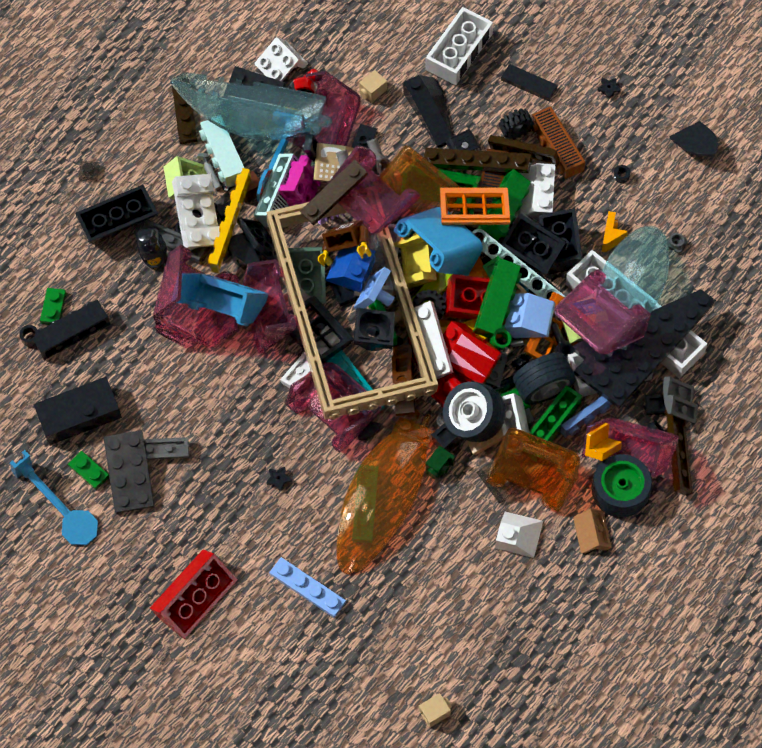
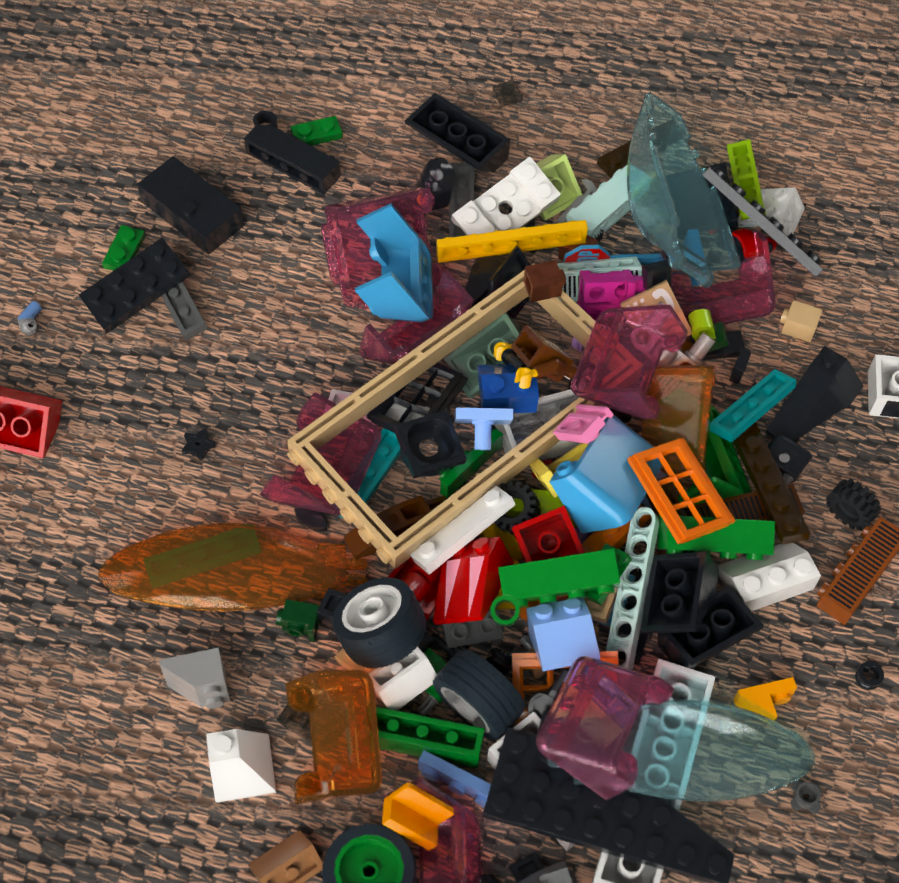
camera: 60 degrees right, 5 degrees down
(78, 526) = (49, 267): dark azure piece -> none
(117, 554) = (26, 318): none -> arm
(253, 61) = (745, 172): none -> lime slope
(288, 211) = (544, 281): none -> copper brick
(298, 66) = (770, 226): none -> plate
(307, 587) = (60, 540): light blue plate -> none
(334, 192) = (598, 317): dark brown plate -> none
(339, 254) = (510, 357): none -> black piece
(359, 138) = (702, 322): none -> lime leg
(387, 136) = (740, 366): none -> black tile
(405, 236) = (583, 424): none -> bright pink plate
(423, 139) = (752, 405): none -> teal plate
(457, 531) = (198, 677): none -> light grey slope
(539, 154) = (817, 522): dark brown plate -> none

